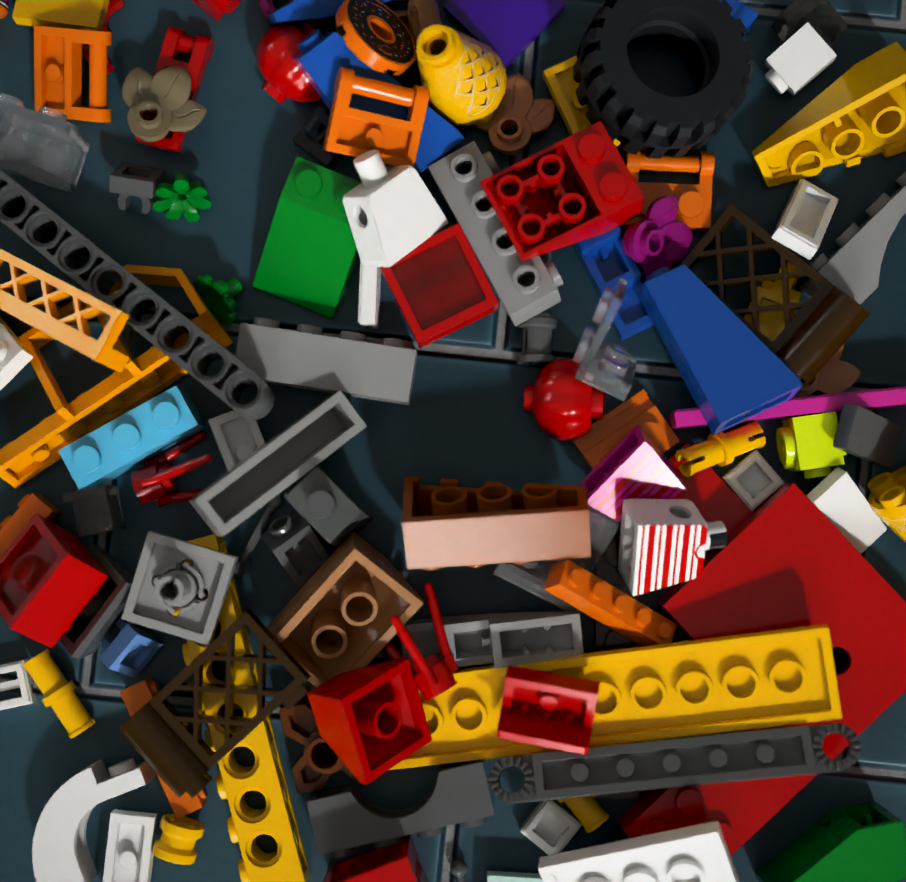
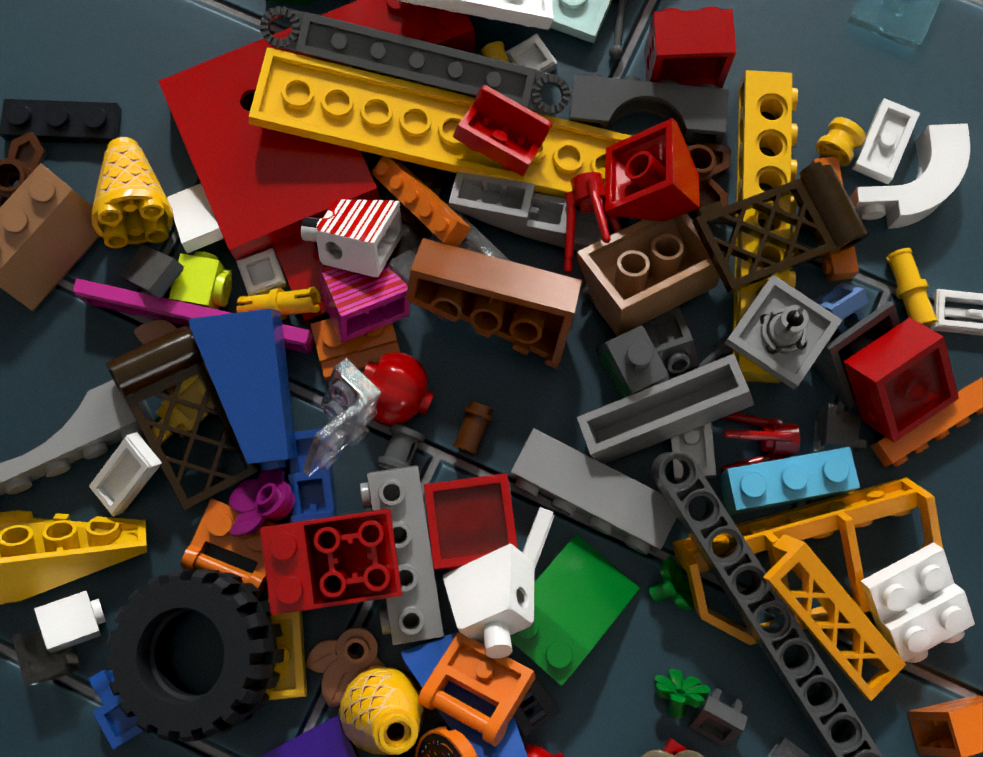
camera: 160 degrees left, 10 degrees down
(471, 389) = (473, 427): none -> reddish brown pin

